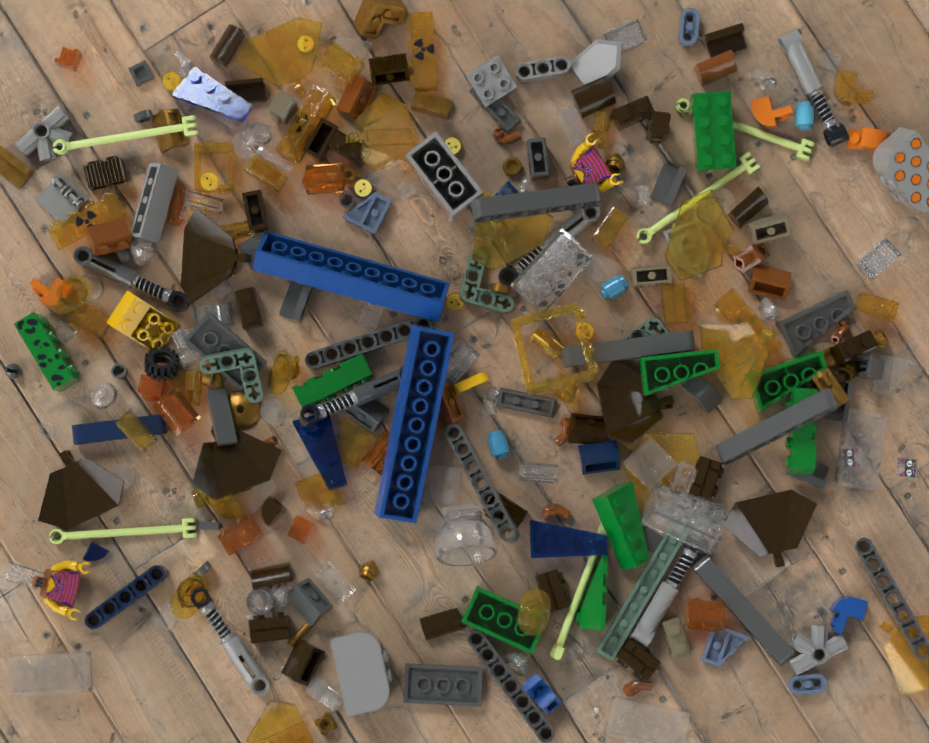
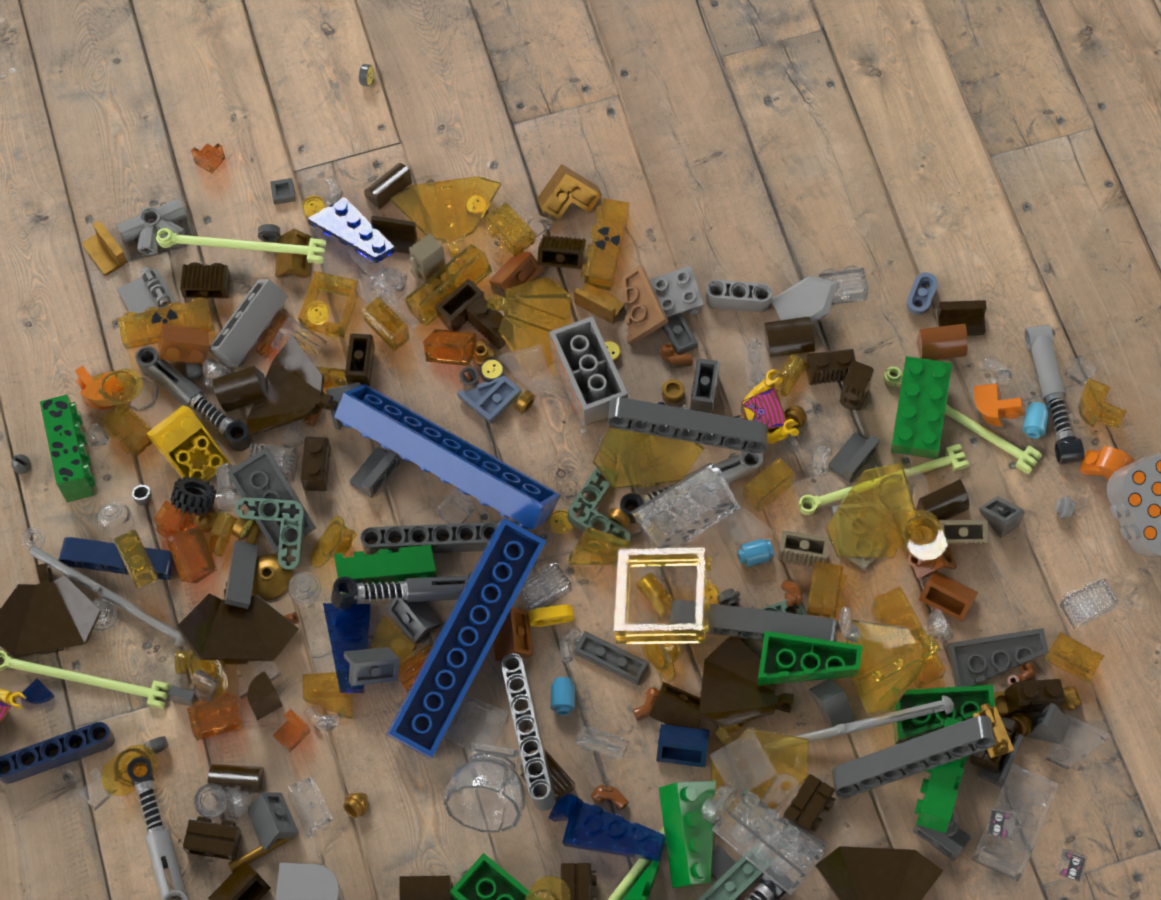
camera: 20 degrees right, 20 degrees down
(121, 460) = (109, 595): none -> light grey bar
(167, 261) = (240, 388): none -> dark brown brick
(222, 513) = (203, 685): none -> clear tile
(348, 464) = (372, 666): none -> dark grey panel
(398, 209) = (525, 401): none -> pearl gold tile
(469, 102) = (642, 305): none -> medium nougat wing
(492, 318) = (597, 548): none -> clear yellow wing
(526, 530) = (564, 808): none -> clear blue tile
(603, 332) = (729, 597): none -> dark grey plate
(642, 494) = (716, 807): none -> clear plate
(653, 313) = (795, 595): none -> dark orange arm
(699, 332) = (847, 627): none -> clear arm
(742, 244) = (923, 535): none -> clear yellow piece
(791, 379) = (945, 704): none -> light grey bar
(795, 203) = (1002, 515): none -> dark grey slope
(842, 183) = (1064, 507): none -> light grey plate

